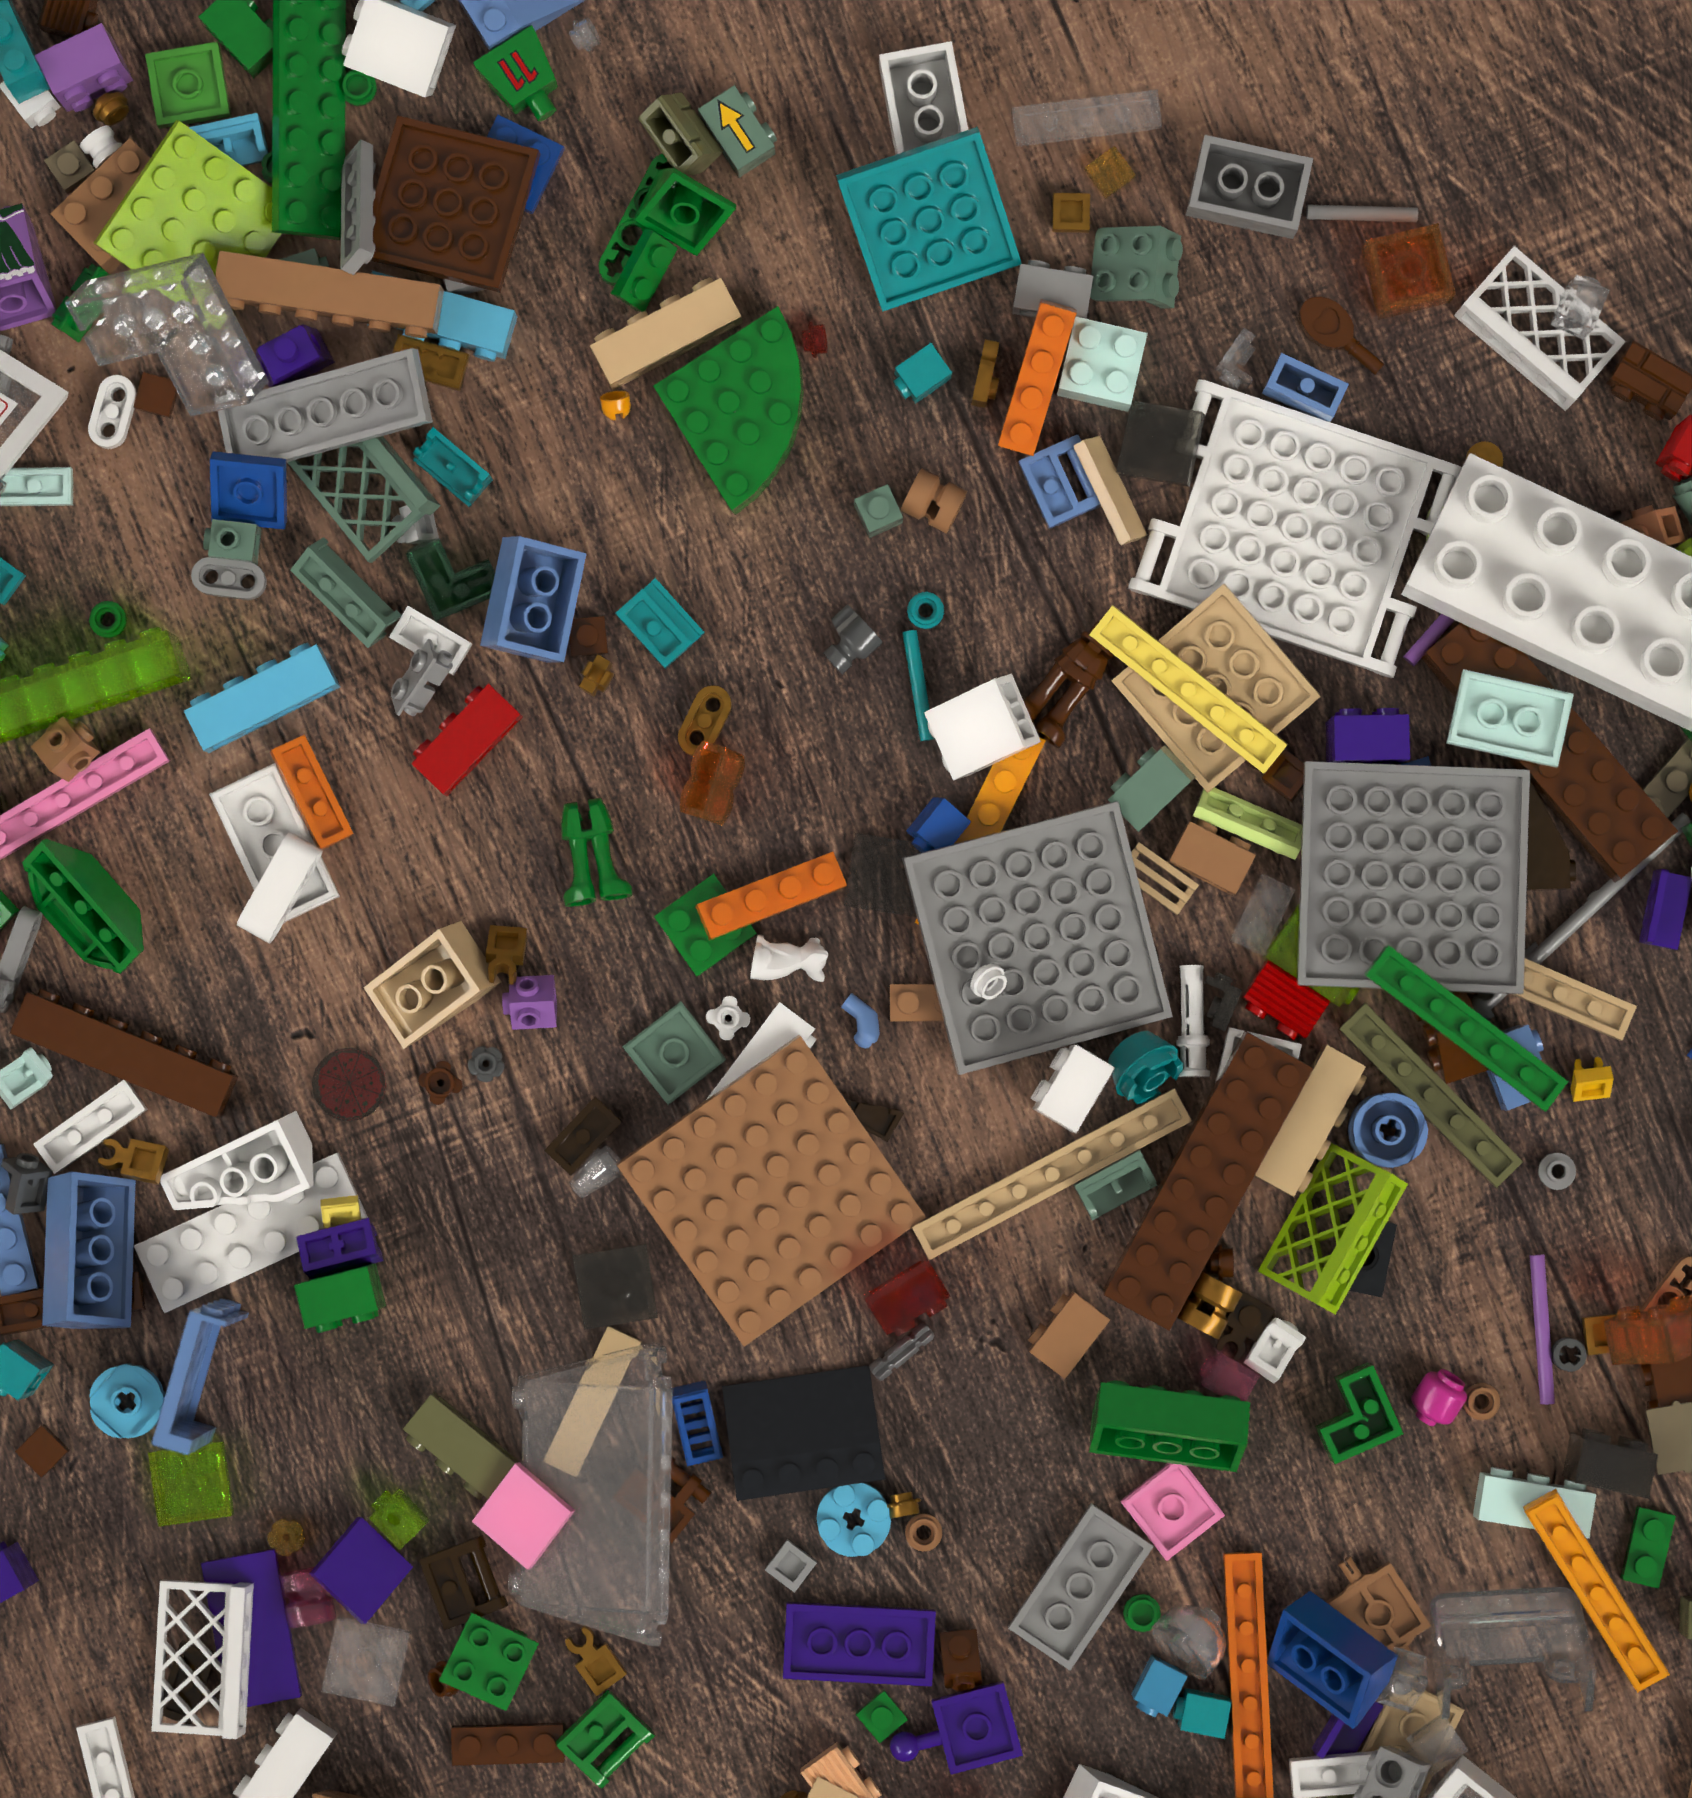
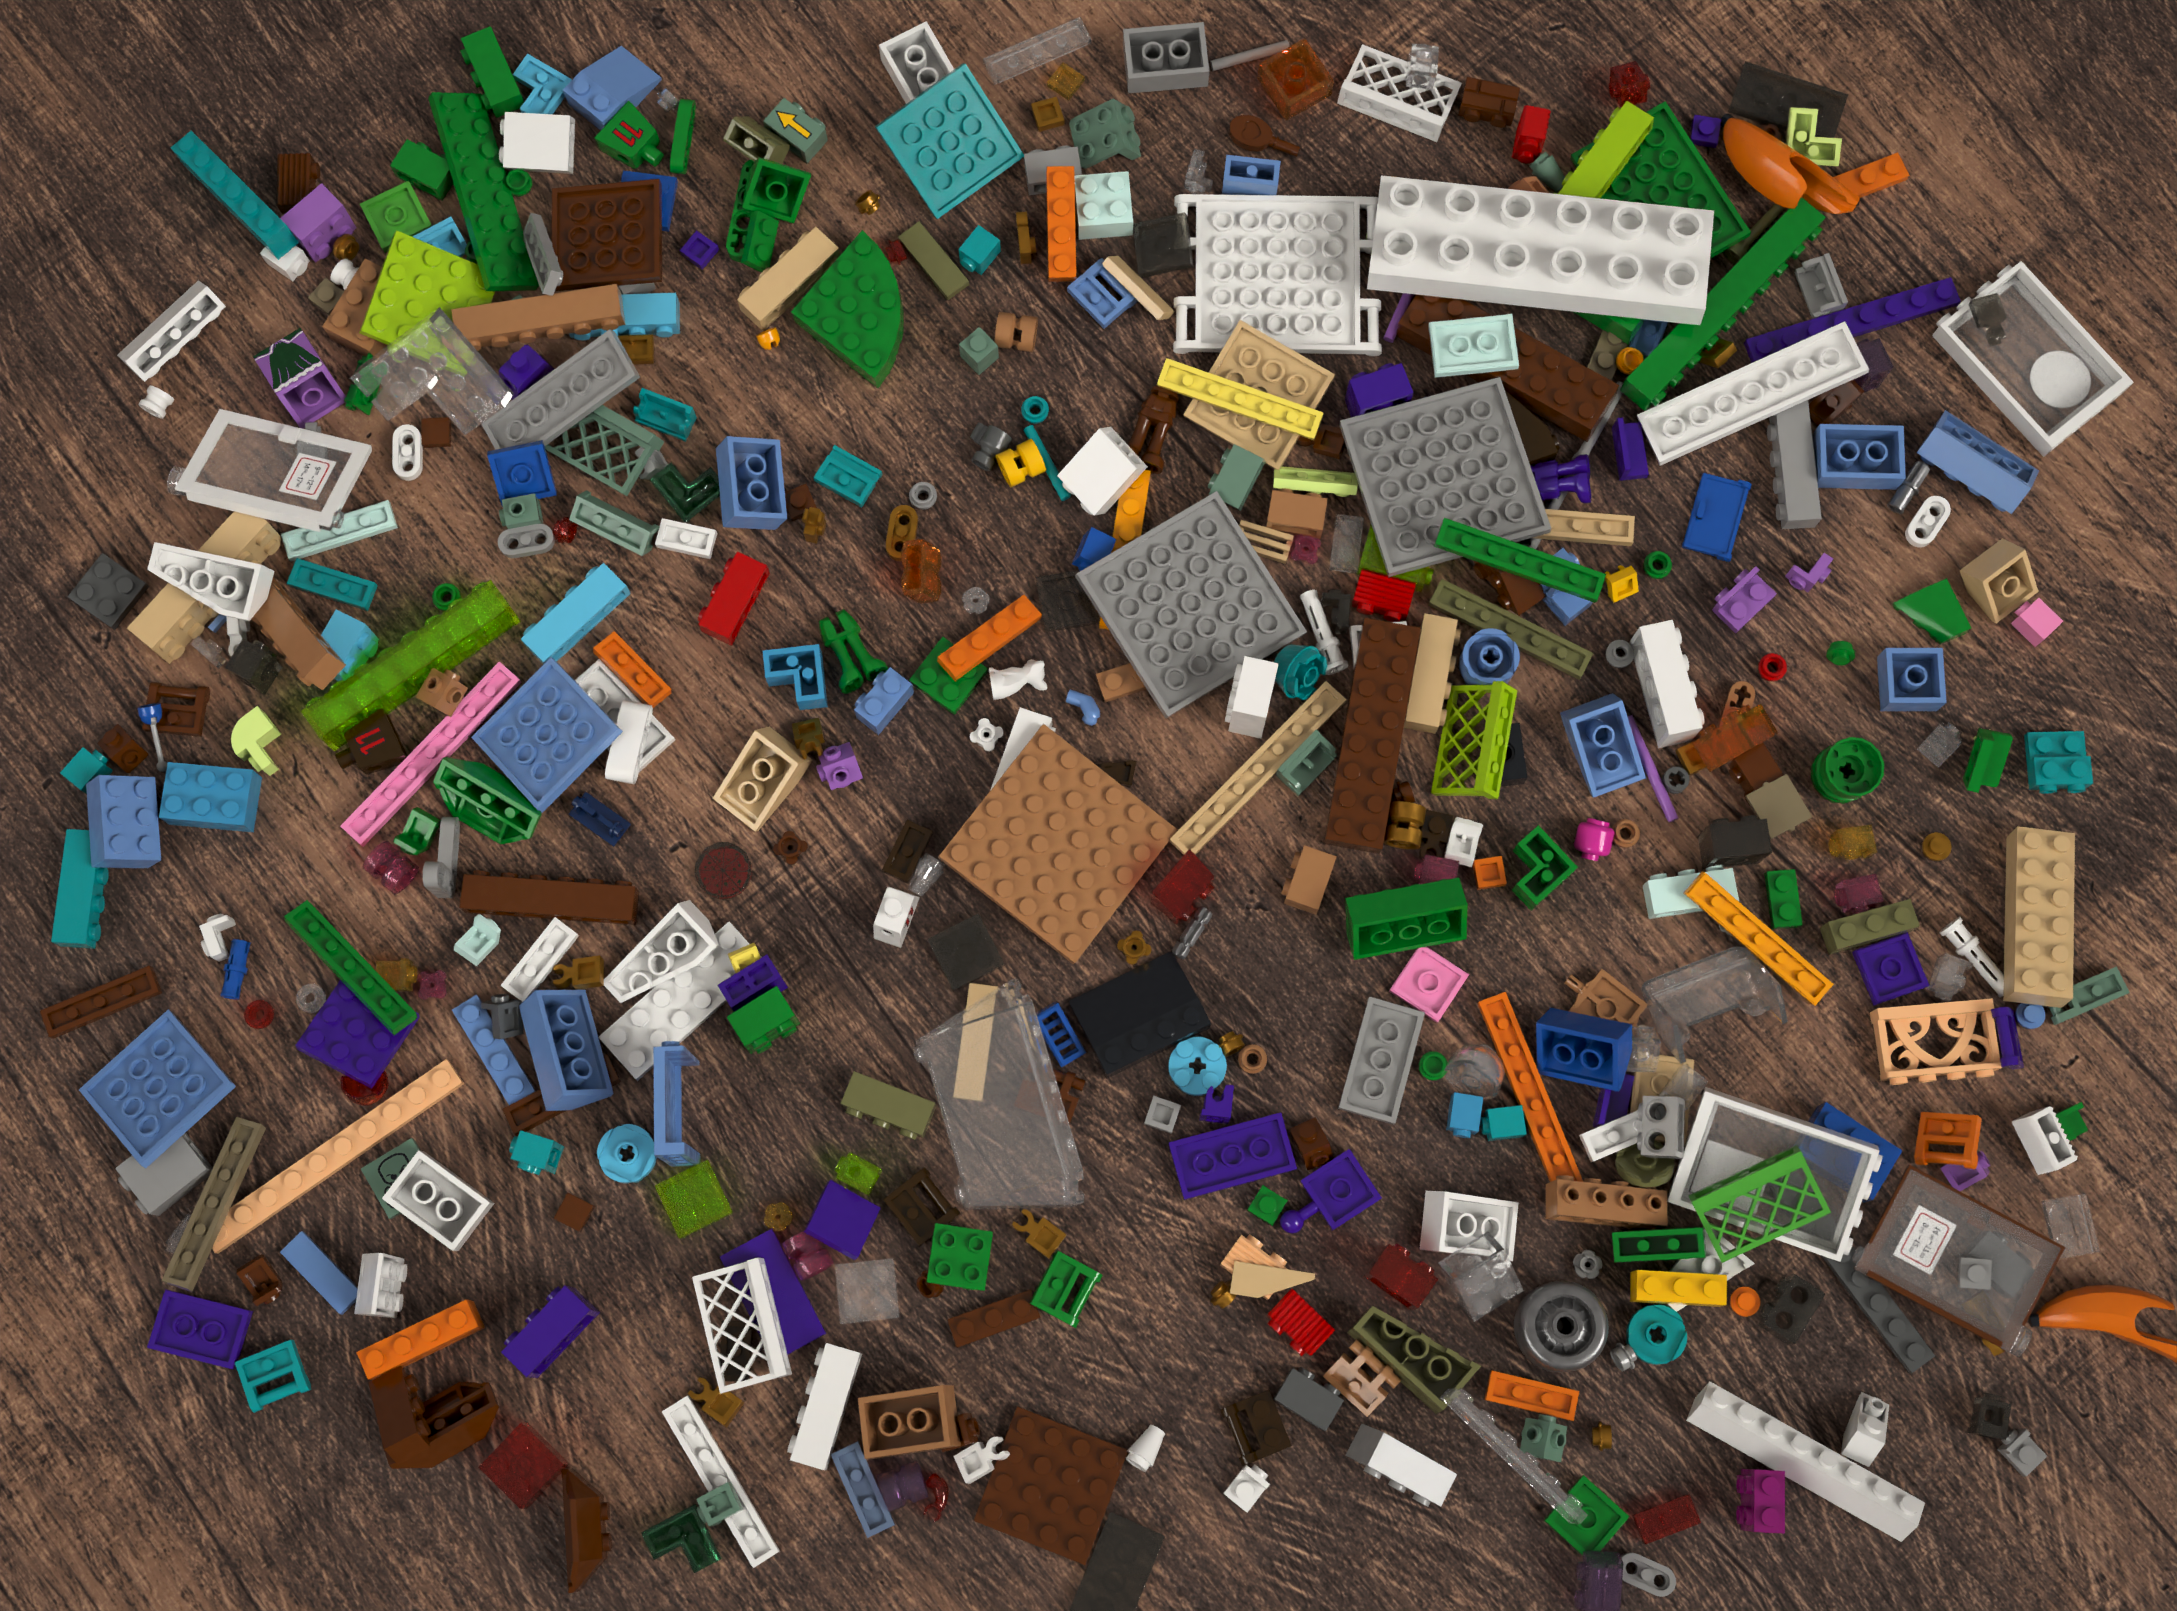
camera: 20 degrees left, 10 degrees down
(144, 1743) = (719, 1406): none -> pearl gold plate
(180, 846) = (546, 734): none -> medium blue plate
(215, 969) = (599, 818): none -> dark blue hinge
(281, 580) = (565, 530): none -> clear red plate
(411, 691) = (682, 577): light grey hinge -> none
(476, 1067) = (819, 830): dark grey plate -> none
(523, 1515) = (951, 1136): bright pink tile -> none
(525, 860) = (800, 667): none -> dark azure brick
(543, 1212) = (894, 916): none -> white torso
(563, 256) = (699, 250): none -> dark purple plate
(588, 92) = (682, 136): none -> green beam
(613, 935) = (883, 700): none -> medium blue brick
(674, 1053) = (955, 773): sand green tile -> none
(747, 667) = (923, 487): none -> light grey plate
(761, 833) = (975, 593): none -> clear plate
(800, 261) = (868, 202): none -> pearl gold plate
(830, 1337) = (1133, 955): none -> pearl gold plate
(859, 366) = (933, 260): none -> olive tile
(860, 1587) = (1217, 1110): none -> dark purple hinge
(897, 678) = (1029, 458): none -> yellow wheel
(988, 981) = (1166, 640): white plate -> none
(1218, 902) = (1309, 542): none -> clear pink plate
(1294, 1397) = (1489, 873): none -> orange plate
(1494, 1281) = (1603, 744): none -> medium blue slope
(1548, 910) = (1550, 485): none -> dark purple piece
(1599, 1235) = (1666, 683): none -> white brick
(1656, 1076) = (1660, 557): none -> green plate

